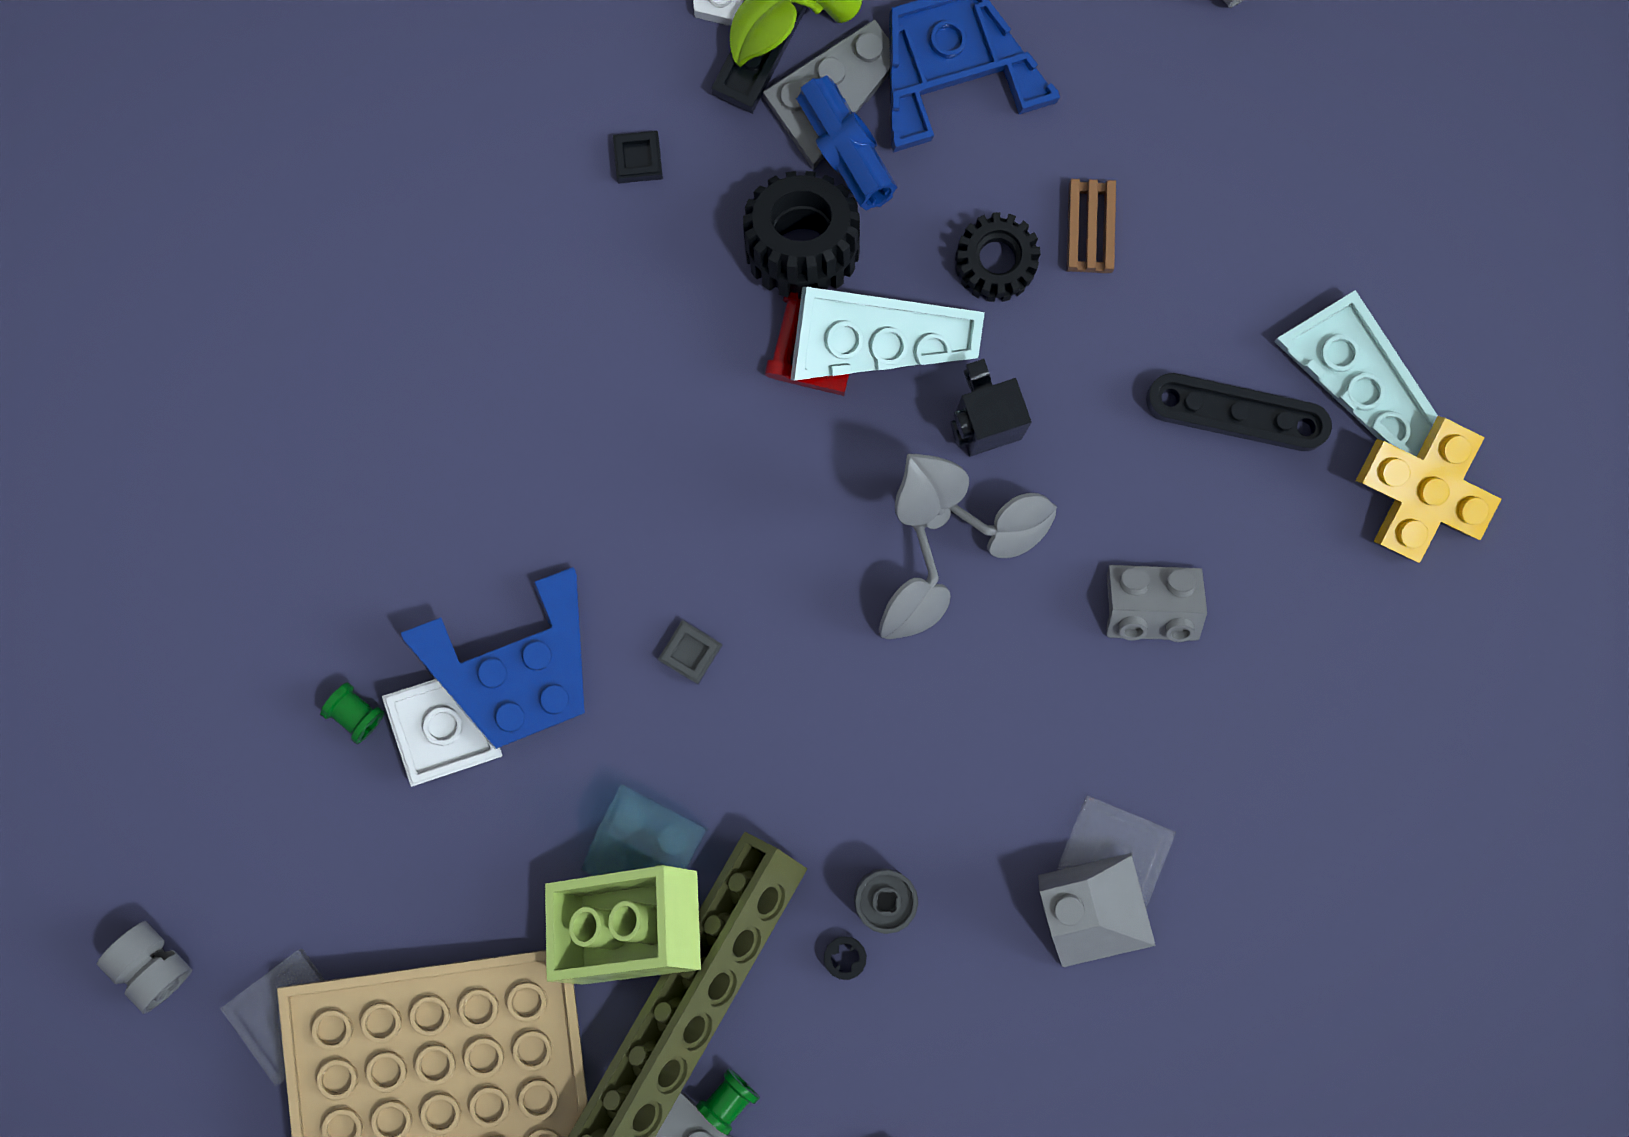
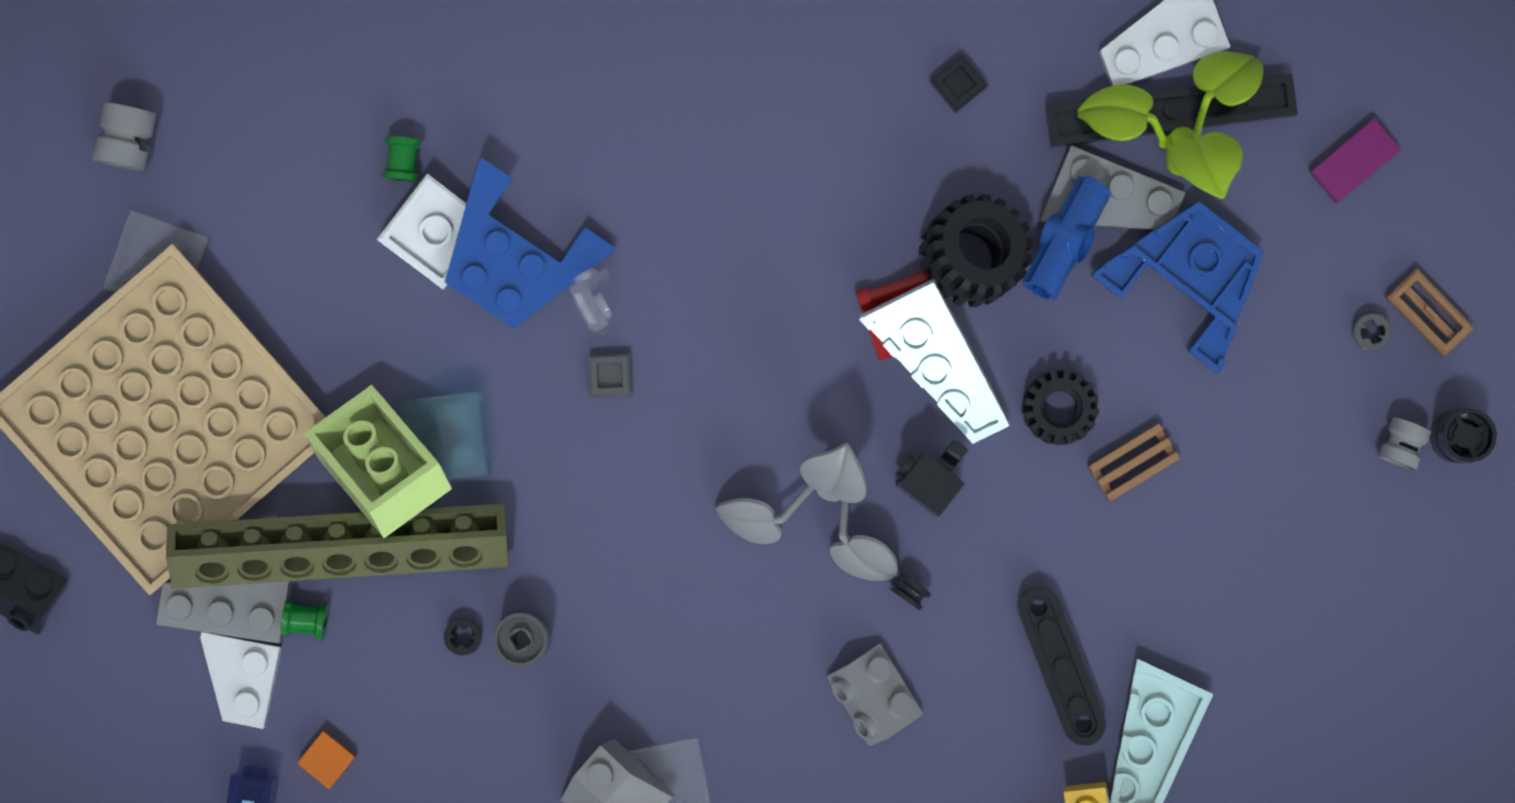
camera: 55 degrees right, 5 degrees up
(613, 624) = (592, 308): none -> clear bracket
(1079, 504) = (910, 591): none -> black bush

